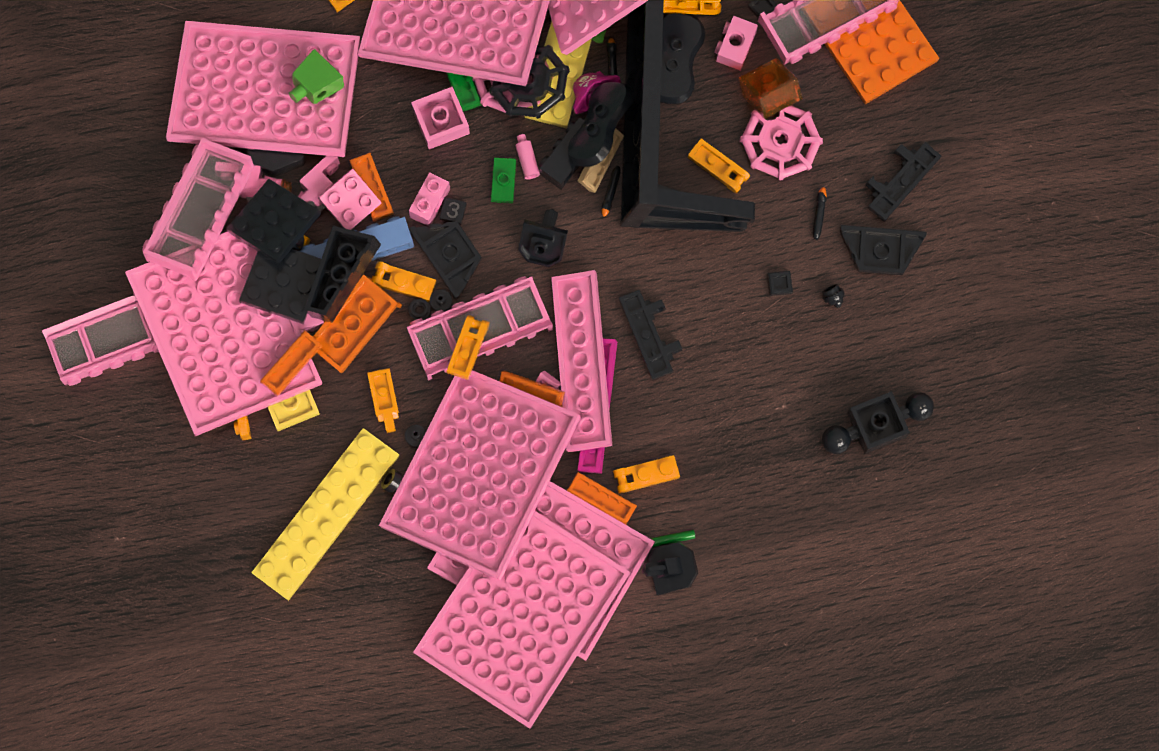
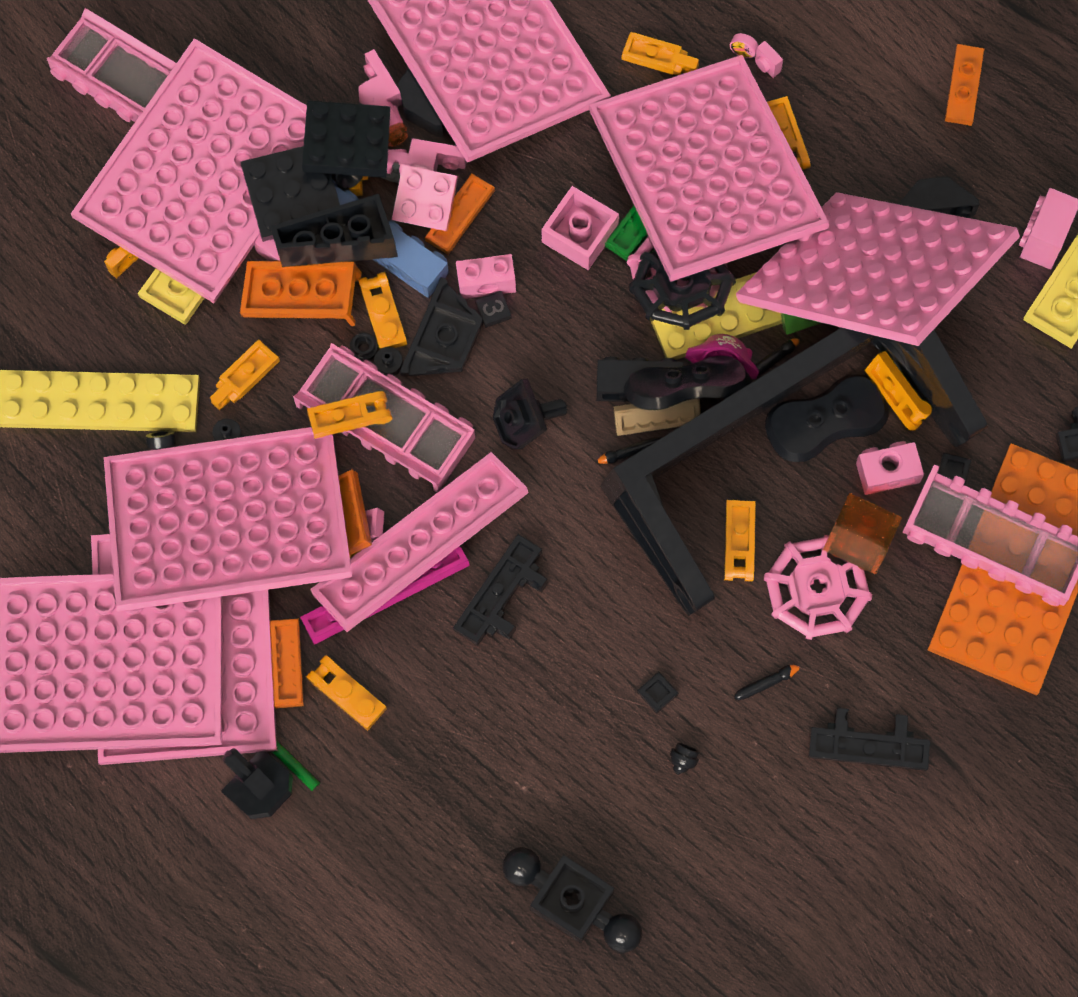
camera: 60 degrees right, 5 degrees down
(198, 208) = (307, 61): window -> none
(291, 363) = (209, 255): orange plate -> none
(315, 79) = (525, 79): bright green torso -> none
(503, 180) = (562, 336): green plate -> none
(527, 157) = (603, 342): bright pink cylinder -> none
(881, 248) = (775, 775): black wing -> none

